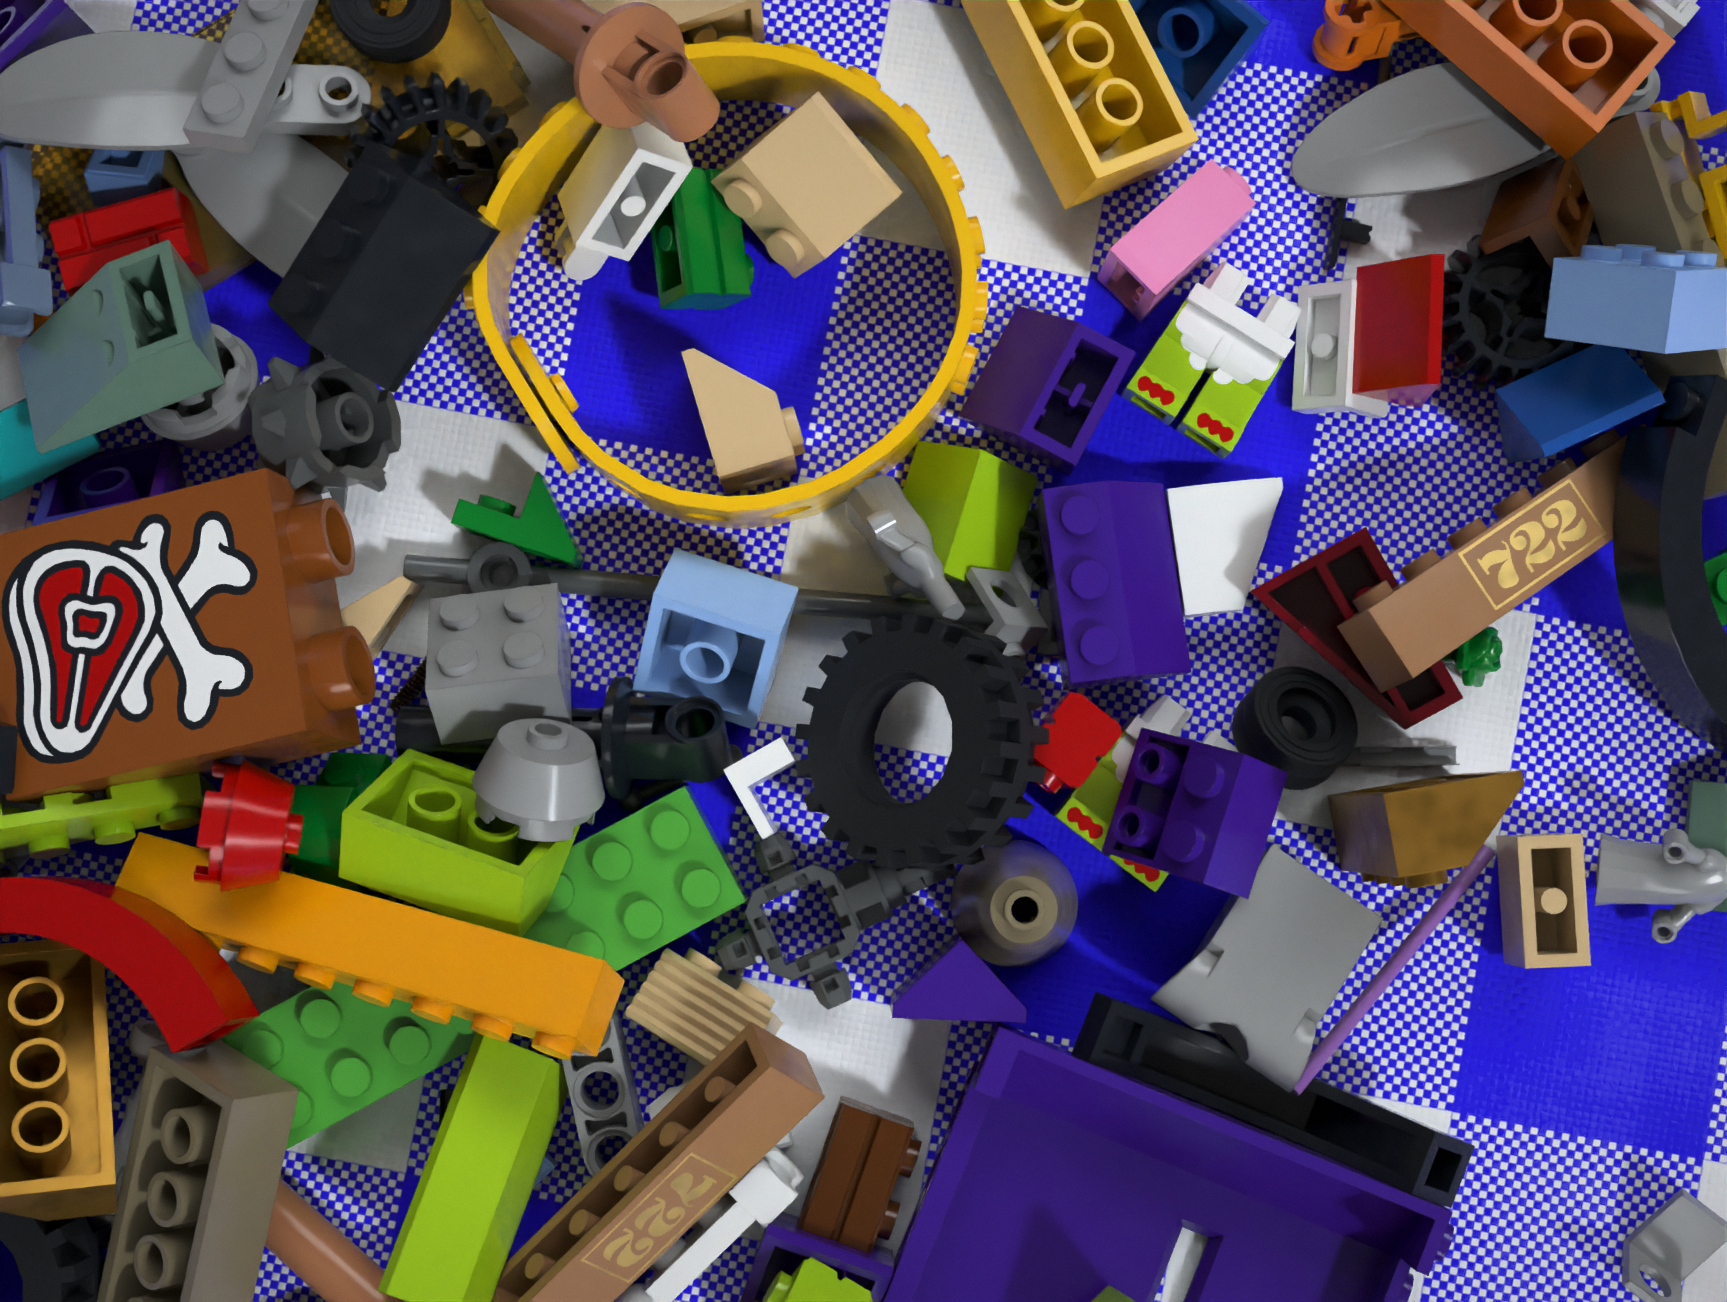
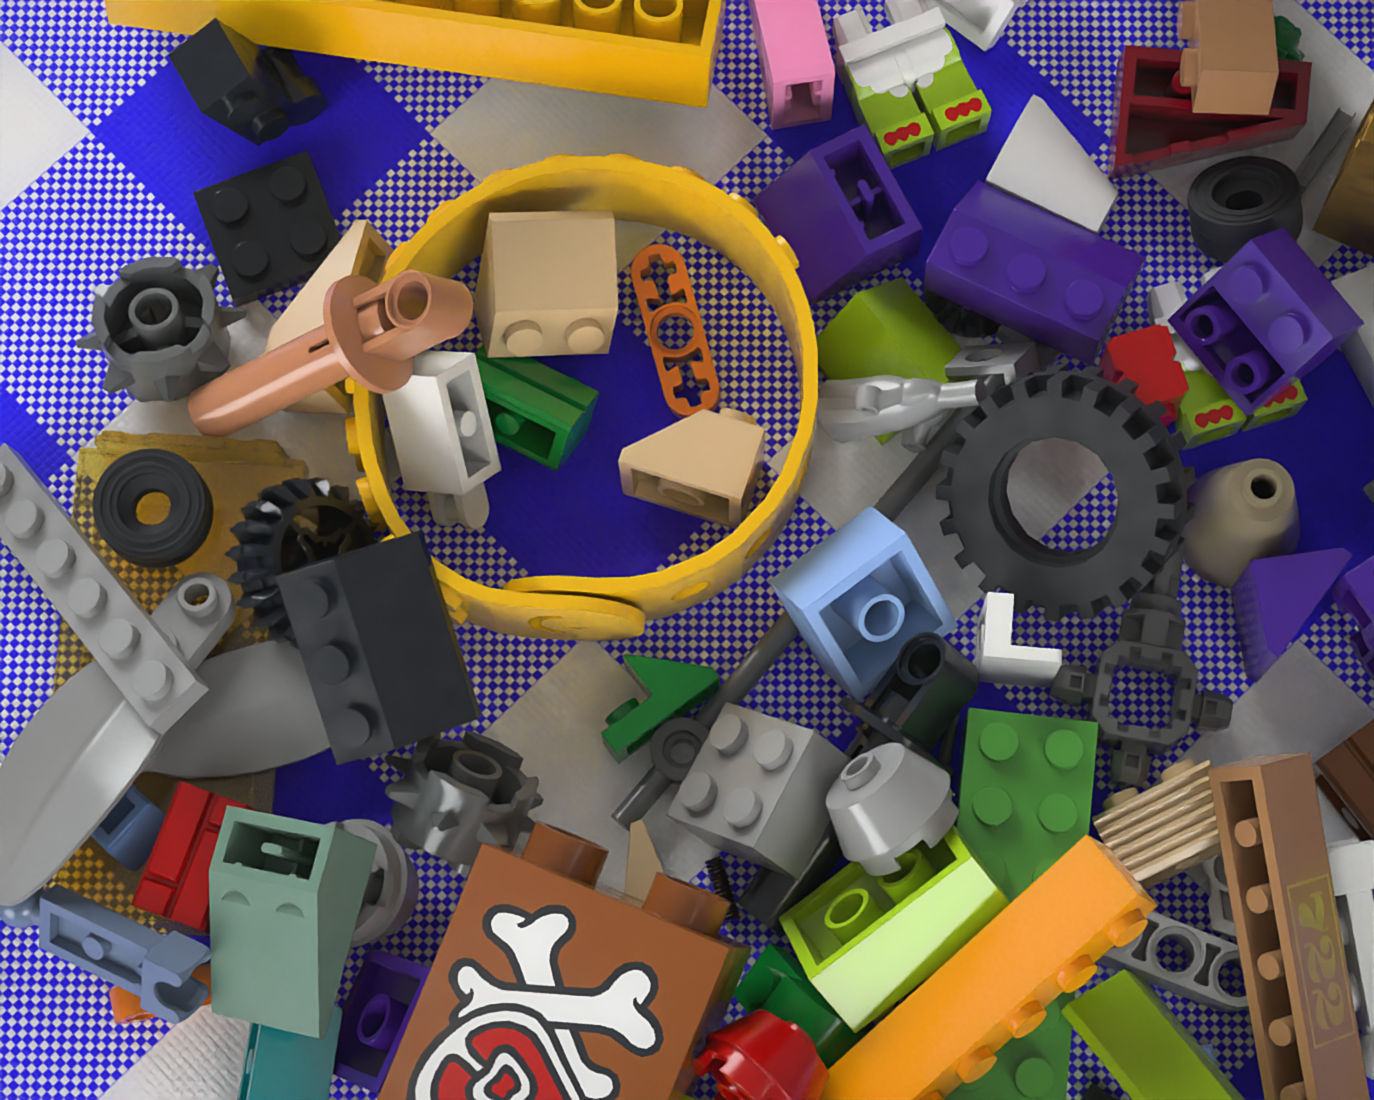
camera: 50 degrees left, 10 degrees down
(848, 295) = (648, 294): none -> orange beam

